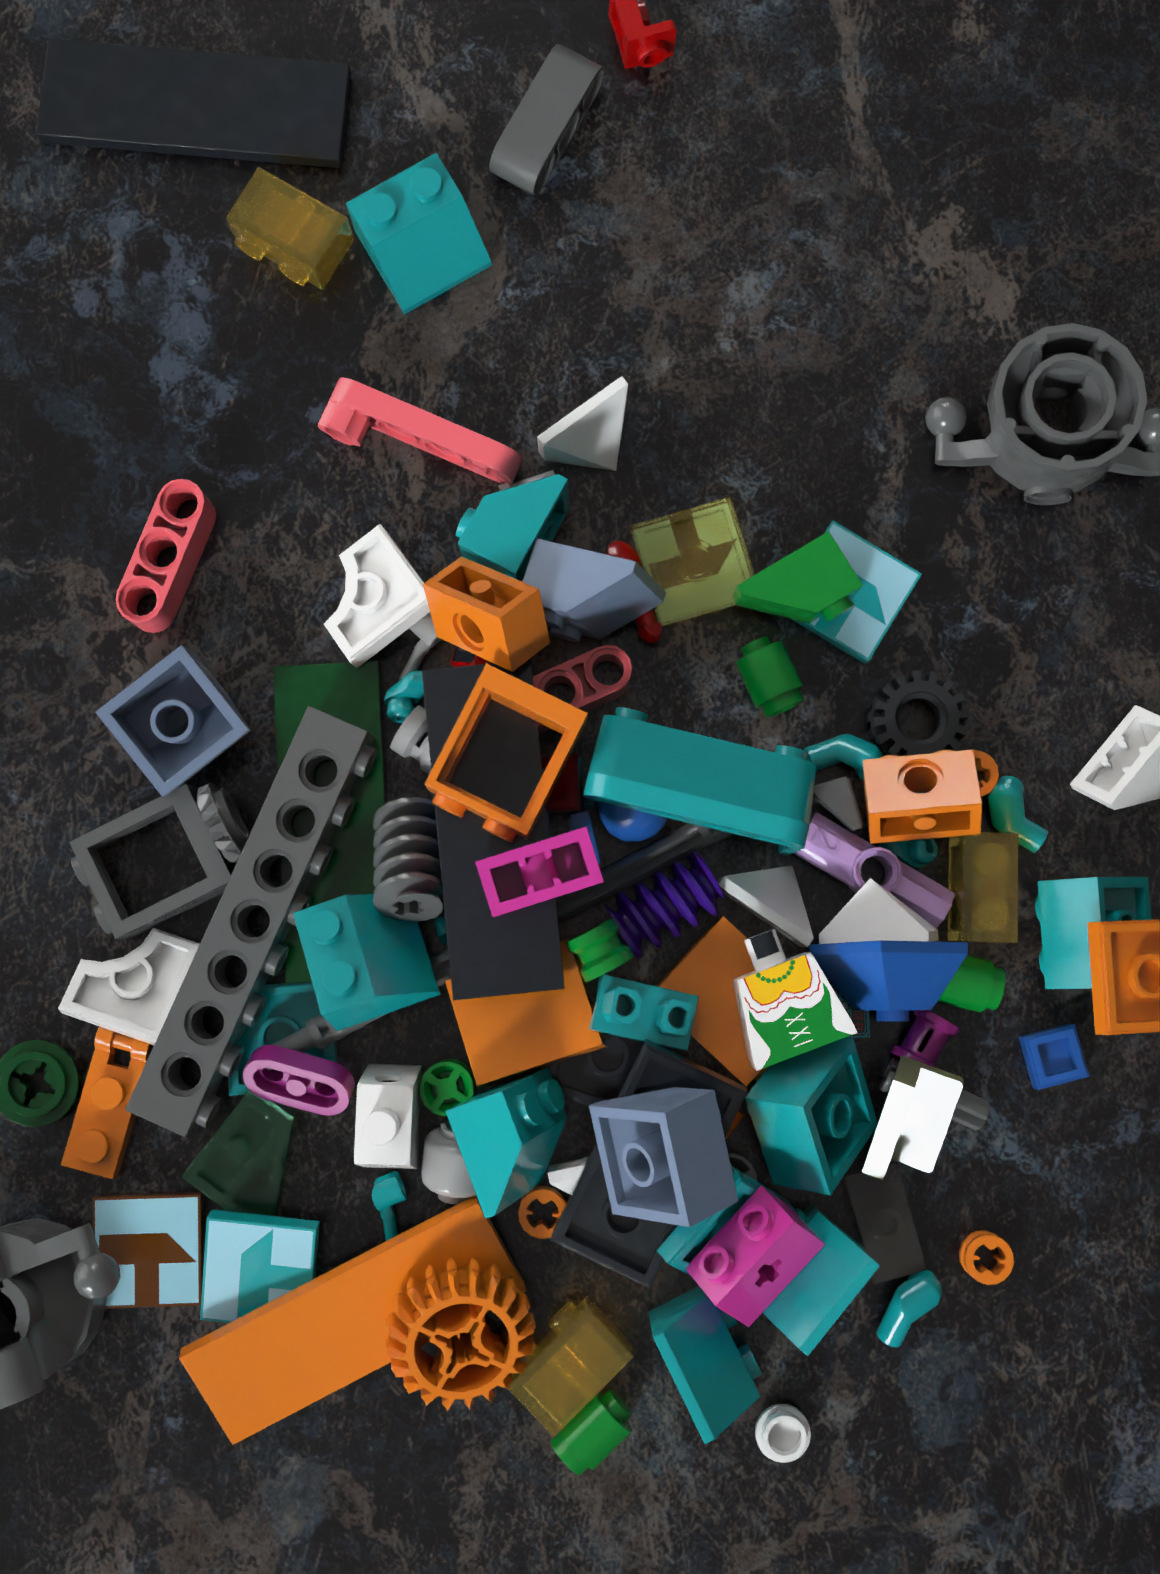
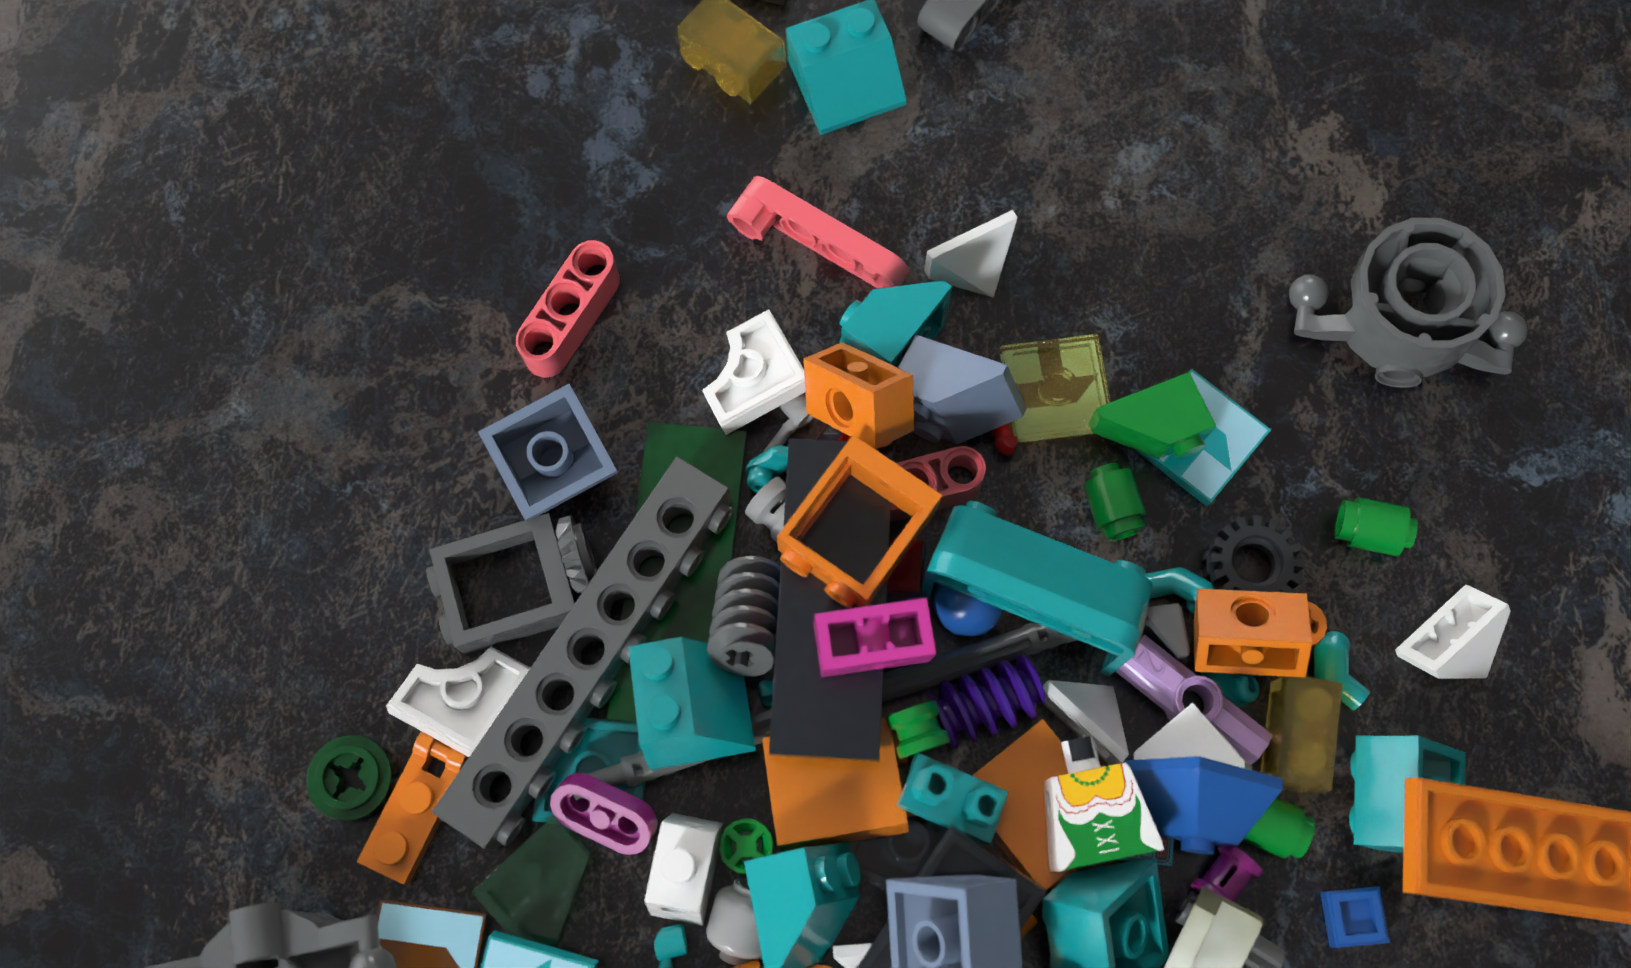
camera: 10 degrees right, 10 degrees down
(1038, 660) = (1375, 526): none -> green brick

